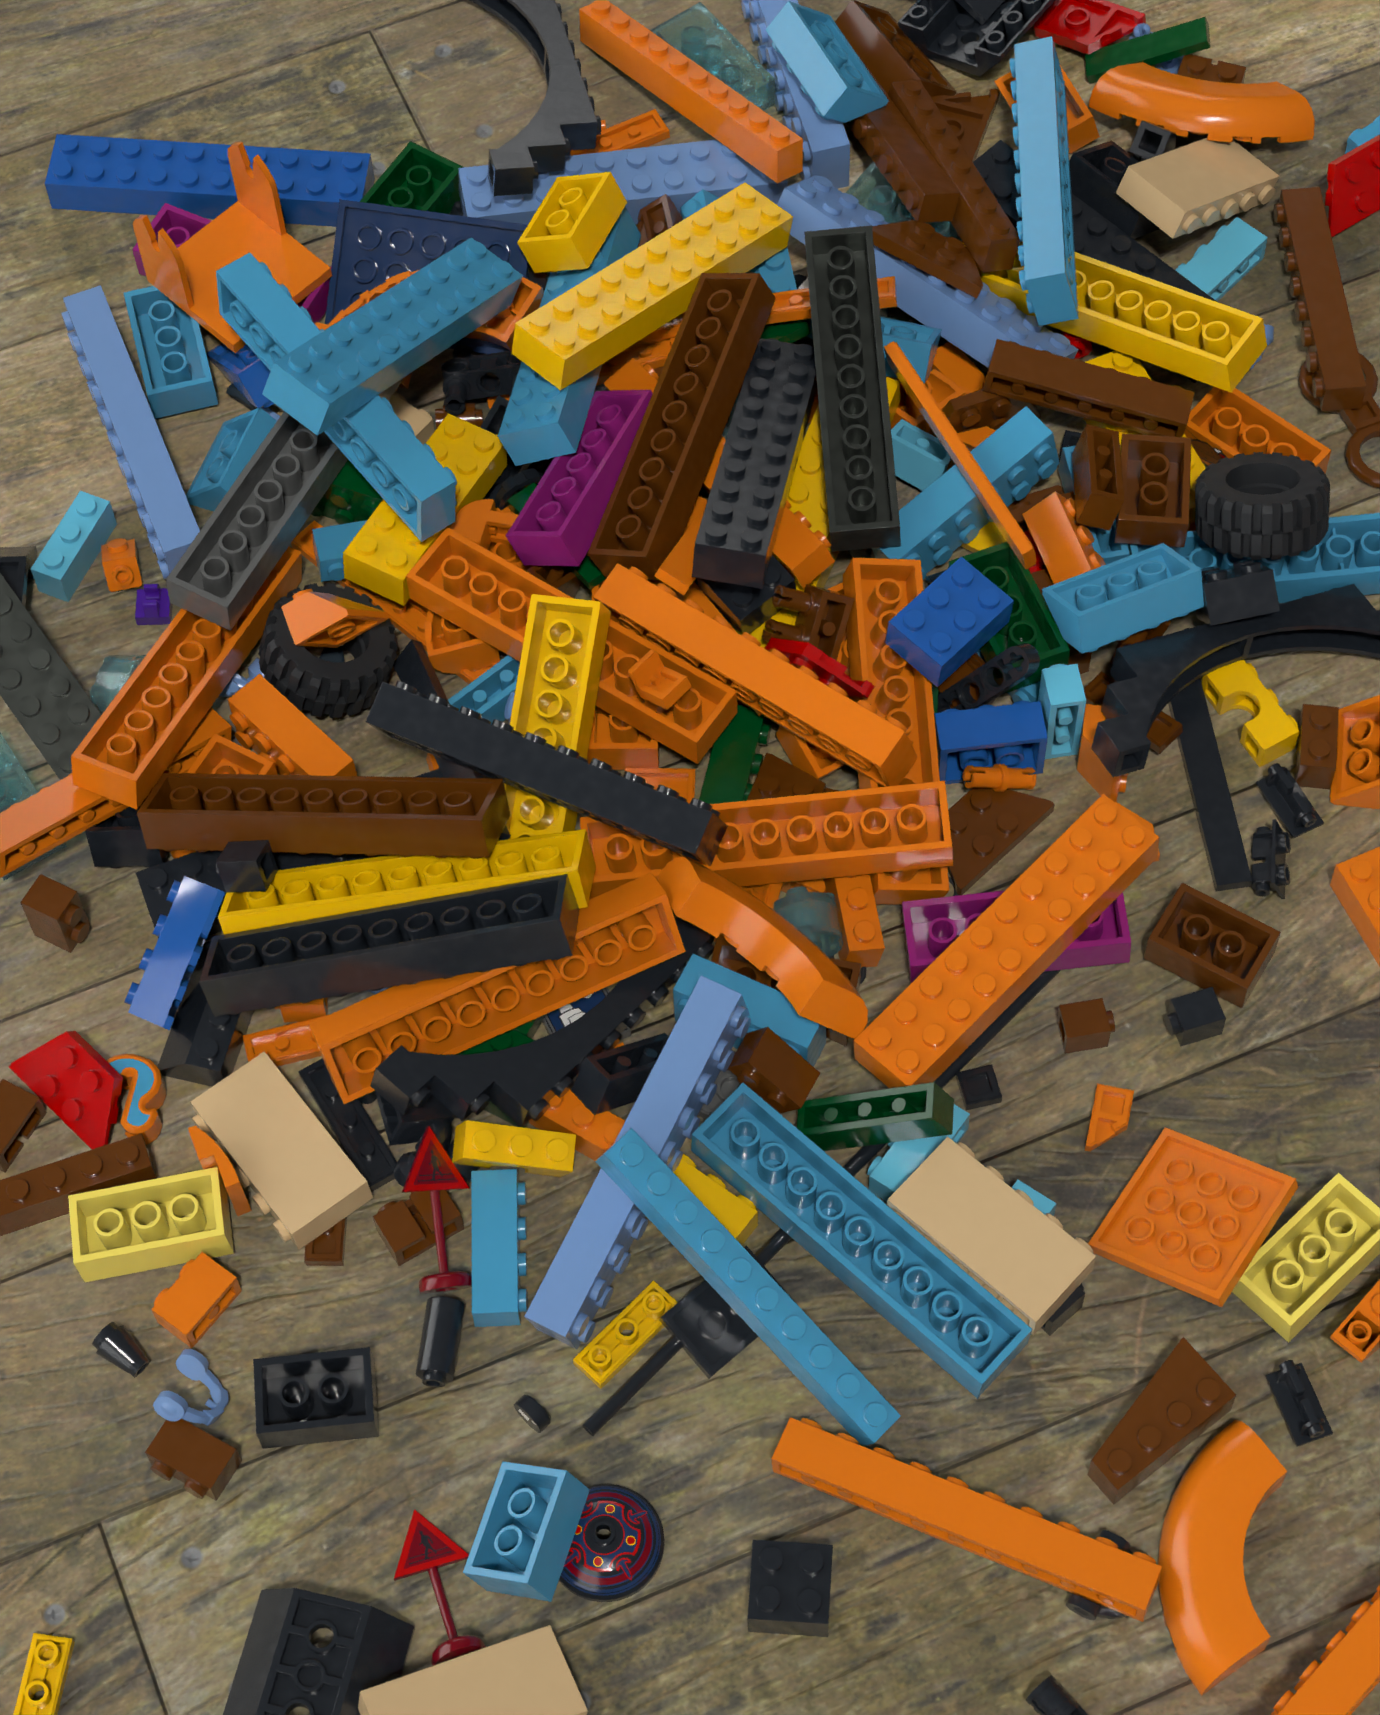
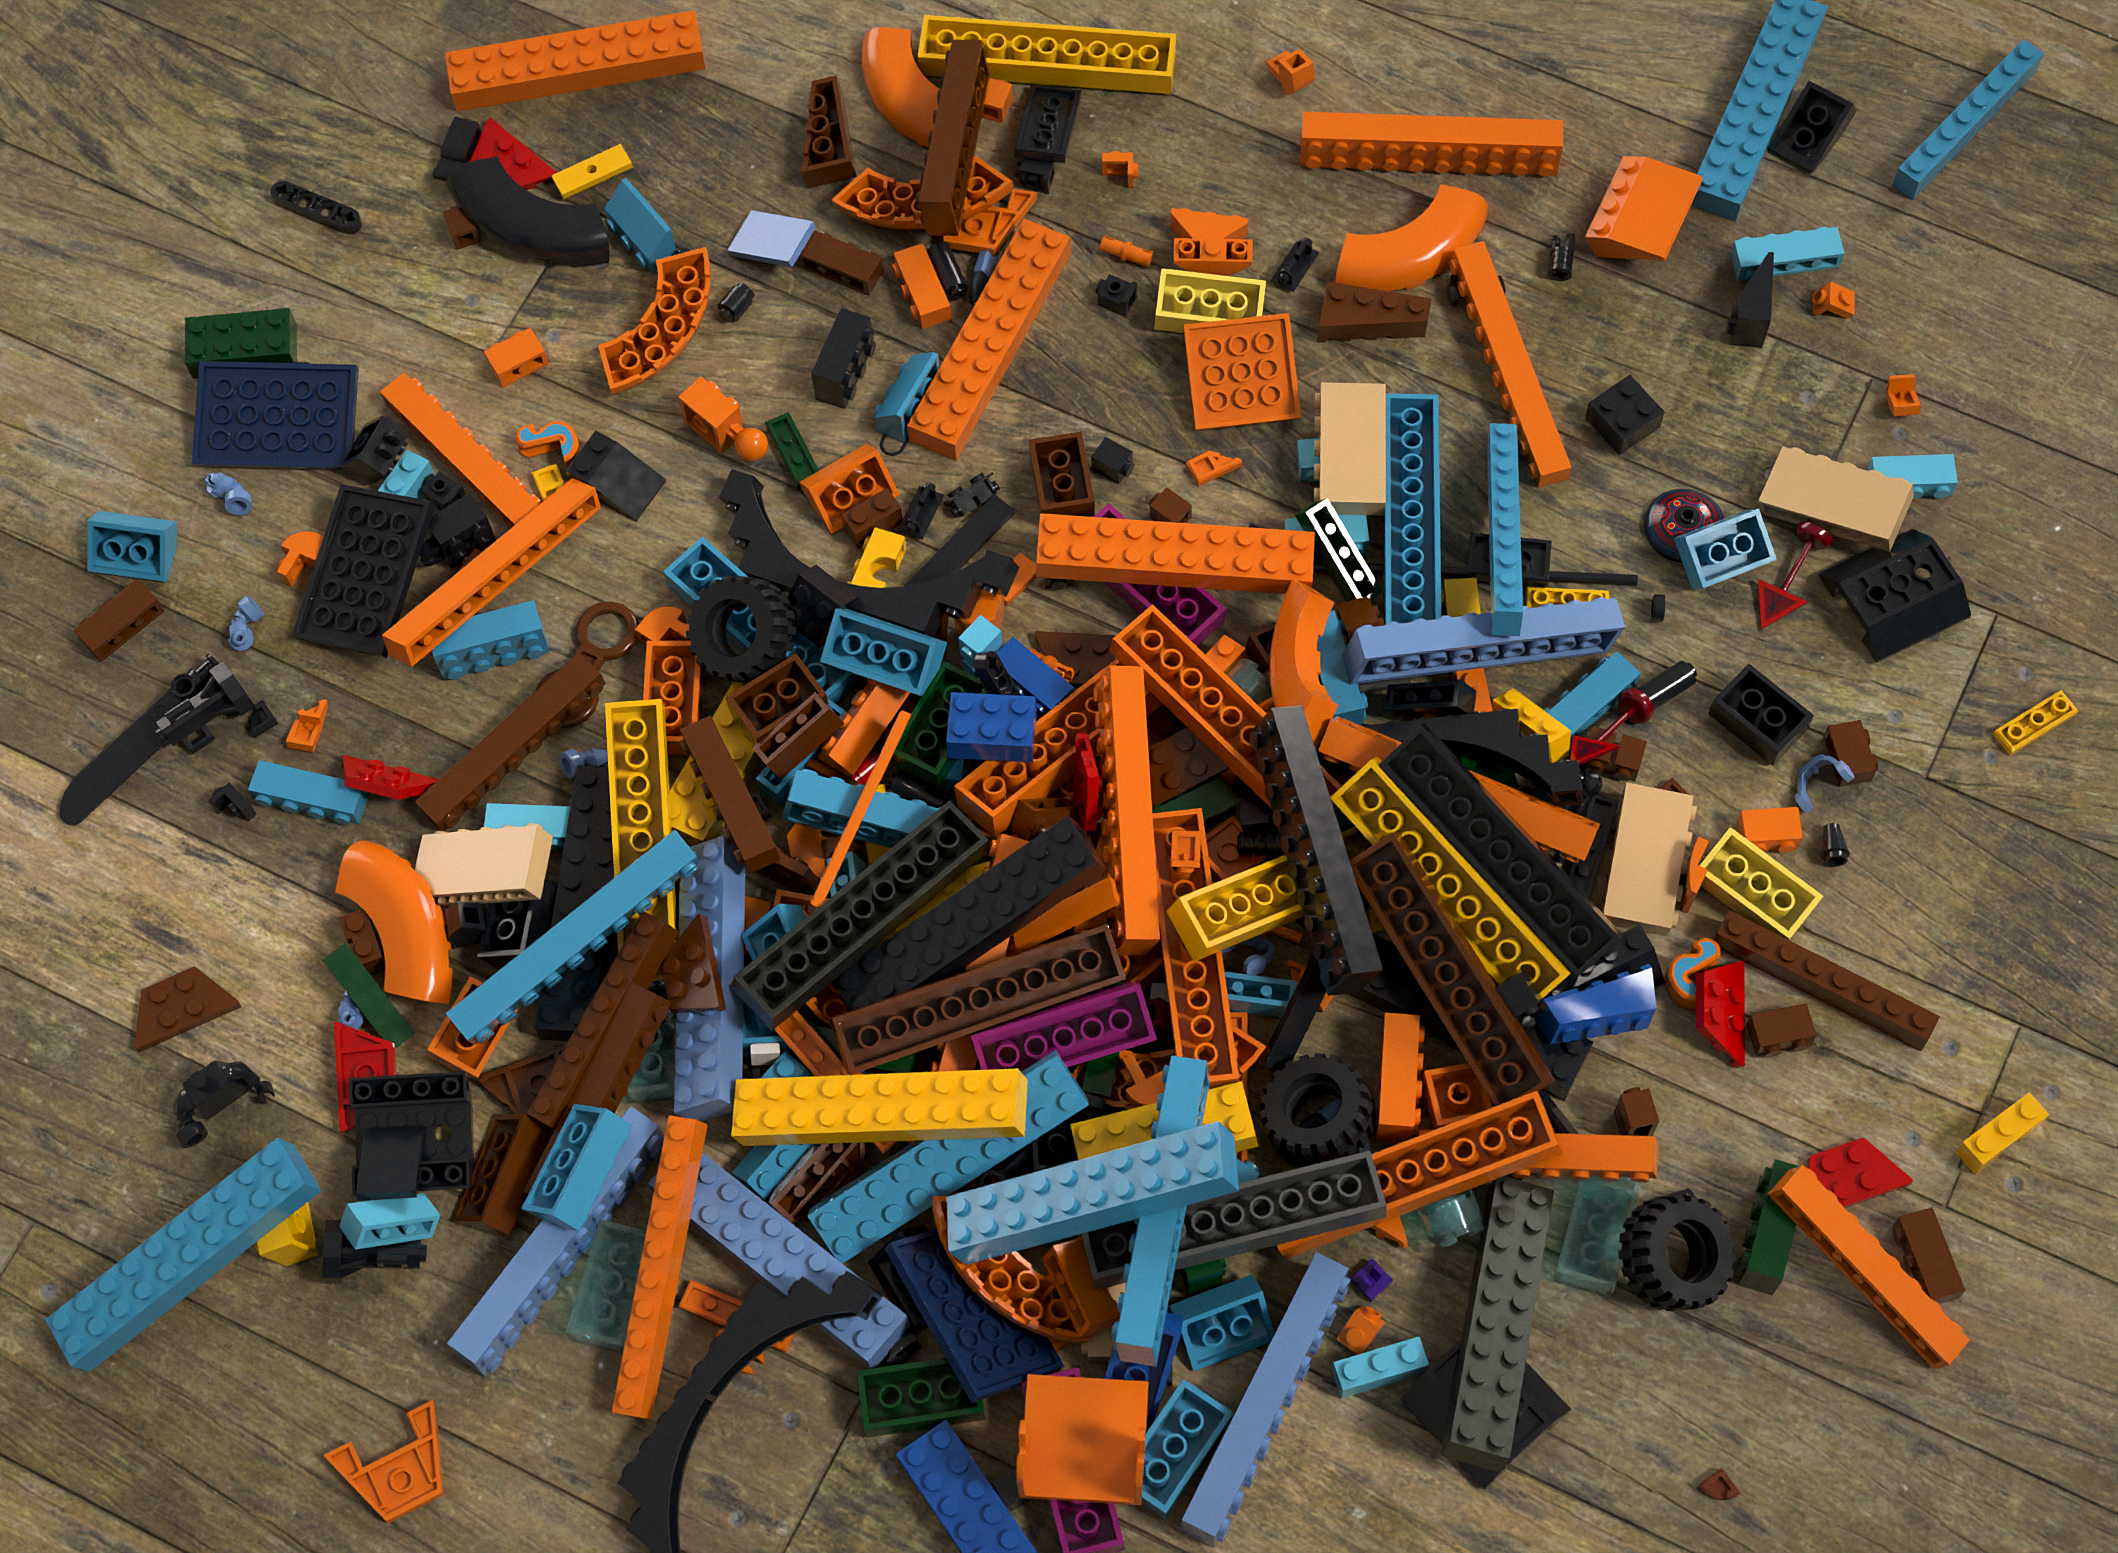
camera: 130 degrees left, 5 degrees up
(327, 619) = (1313, 1090): orange slope -> none
(572, 222) = (864, 1217): yellow brick -> none
(1347, 488) = (663, 625): none -> orange brick

